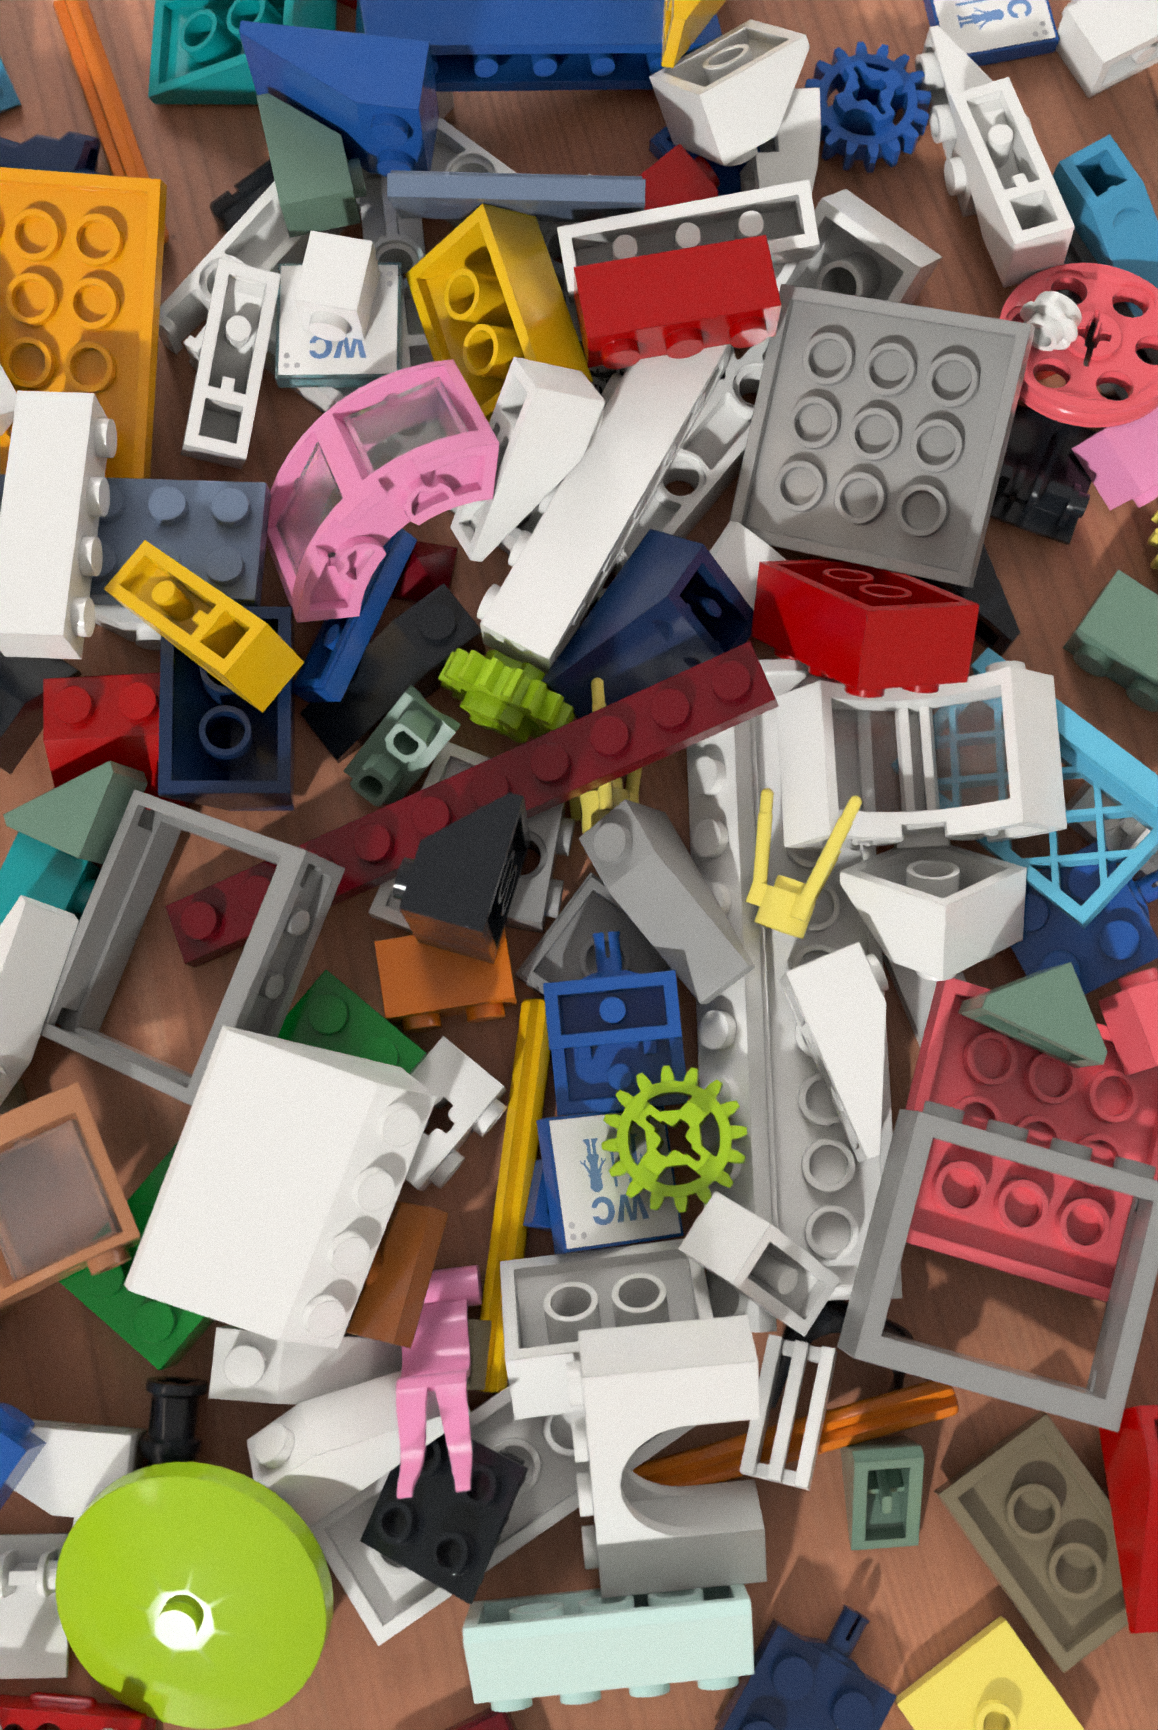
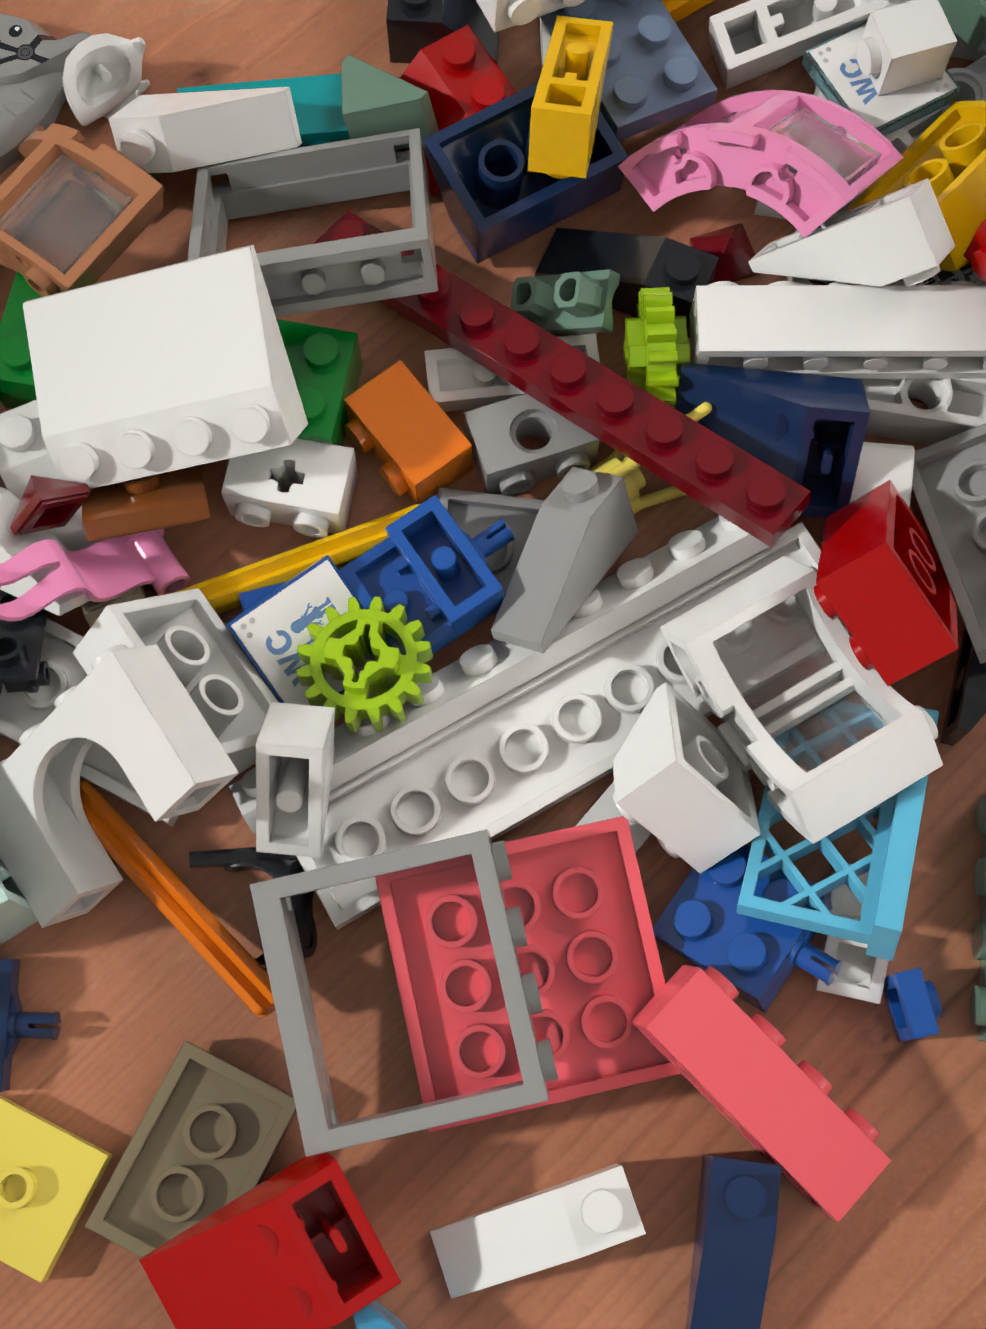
camera: 60 degrees right, 5 degrees down
(343, 1370) = (48, 504): none -> dark red slope
(344, 640) = (671, 217): blue tile -> none
(466, 879) = (479, 371): black slope -> none
(789, 902) = (615, 657): light yellow plant -> none
(800, 1353) = (183, 851): white tile -> none
(844, 1026) = (531, 756): white slope -> none
(883, 1492) = (165, 992): sand green slope -> none
(1043, 1013) = (639, 907): sand green slope -> none

